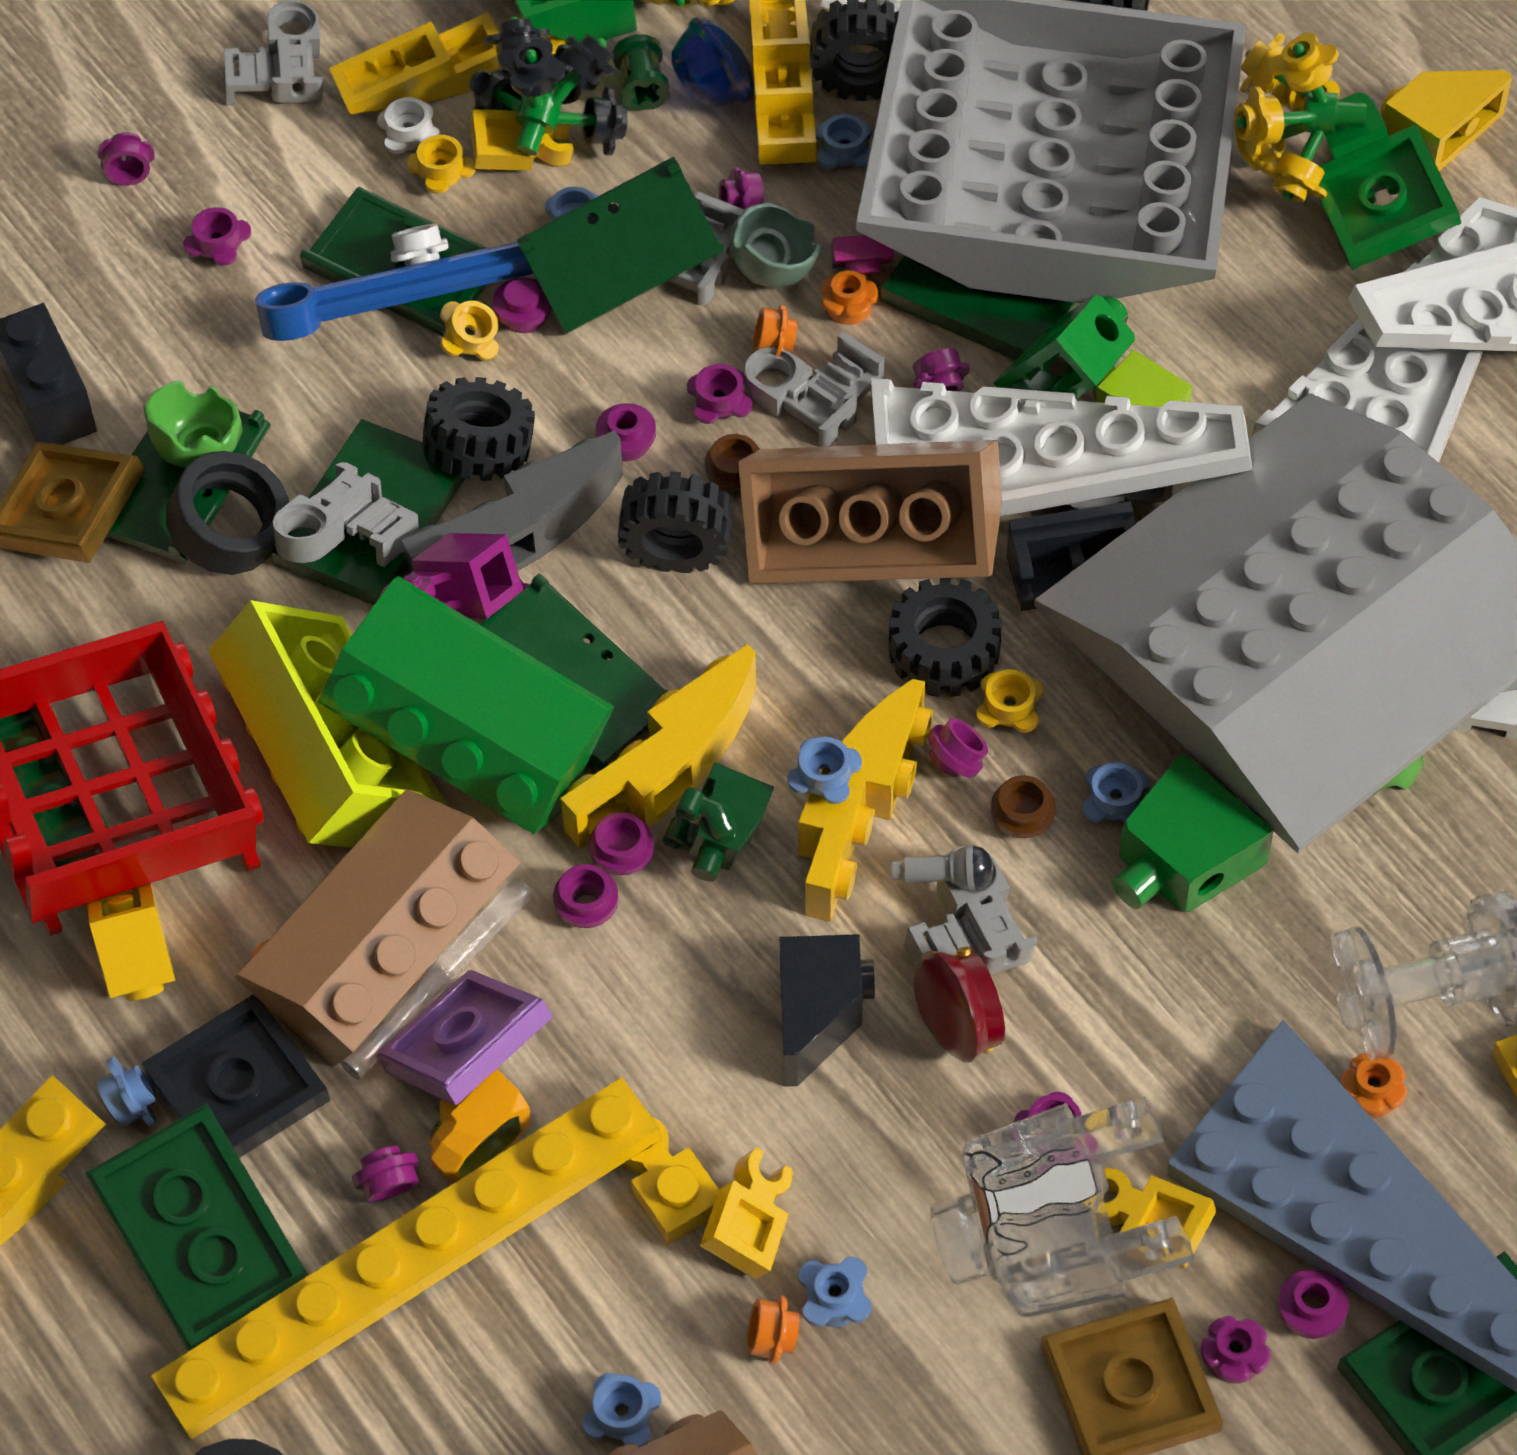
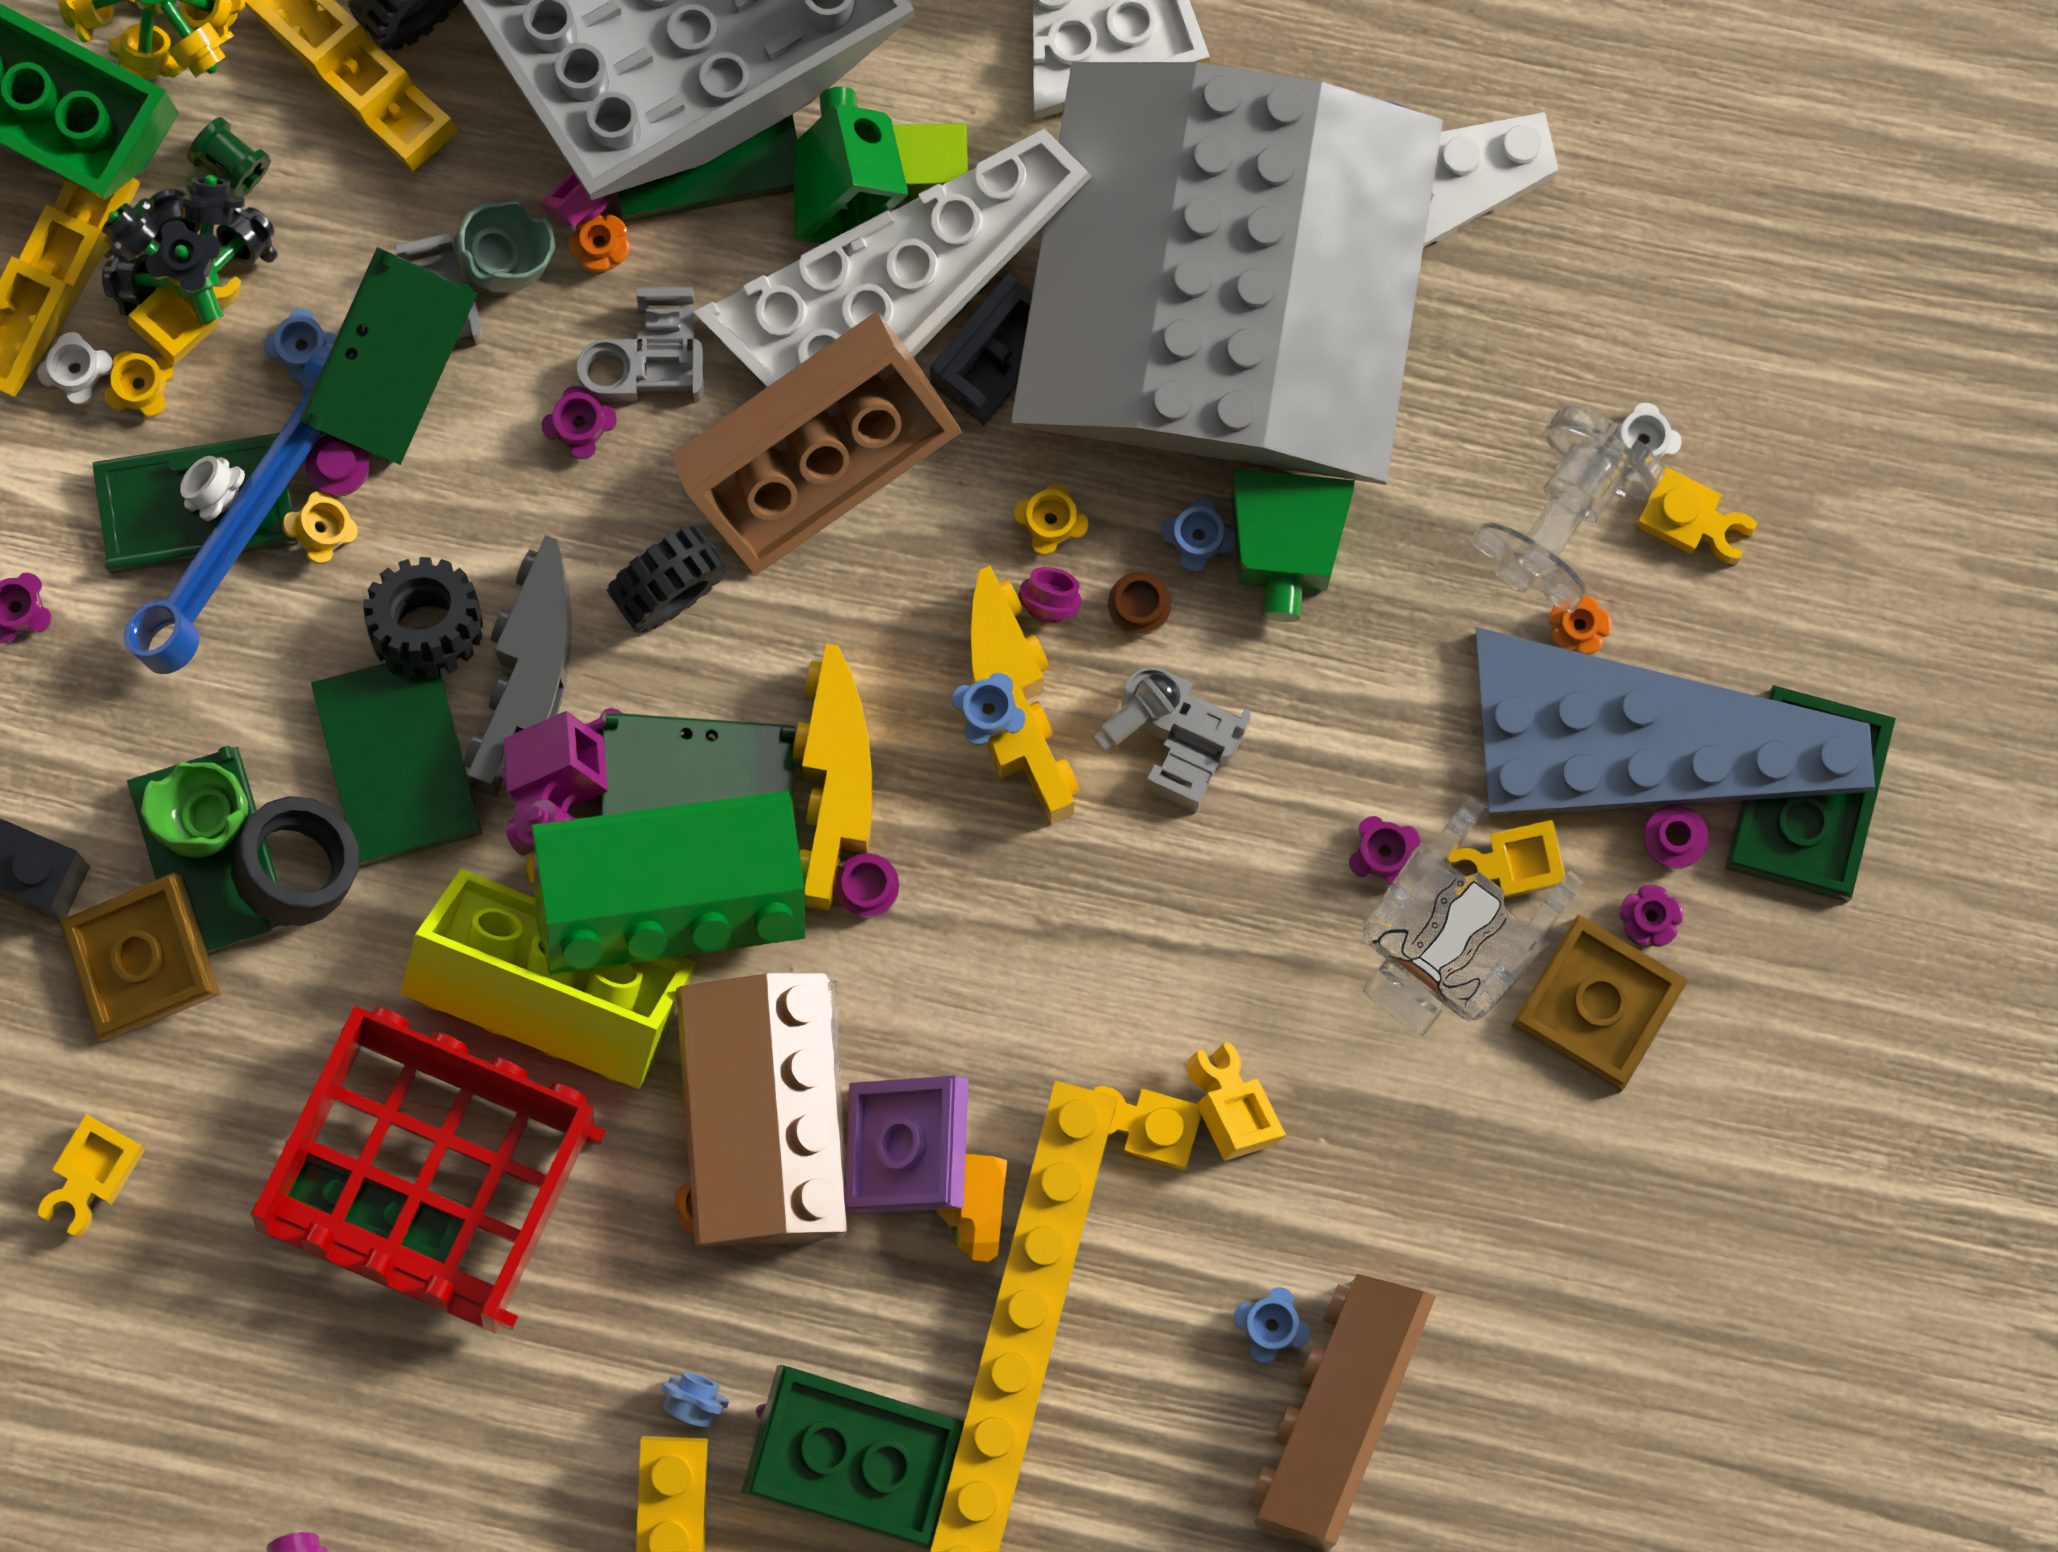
camera: 45 degrees left, 20 degrees up
(131, 943) = (578, 1280): yellow slope -> none
(243, 1072) = (761, 1315): black plate -> none
(349, 504) = (399, 777): light grey piece -> none
(386, 1174) = (945, 1296): magenta plate -> none
(580, 881) = (874, 932): magenta plate -> none
(634, 441) = (532, 535): magenta plate -> none
(711, 65) = (288, 105): clear blue helmet -> none
(723, 460) = (649, 478): reddish brown plate -> none
(726, 817) = (935, 808): dark green piece -> none
(742, 189) = (427, 214): magenta plate -> none
(772, 1329) = (1324, 1177): orange plate -> none
(775, 330) = (572, 328): orange plate -> none
(820, 998) = (1132, 892): black slope -> none
(840, 1310) = (1342, 1129): medium blue plate -> none
(843, 141) = (458, 75): medium blue plate -> none
(941, 367) = (742, 260): magenta plate -> none
(945, 606) = (951, 541): black tyre -> none
(959, 1003) = (1246, 814): dark red piece -> none

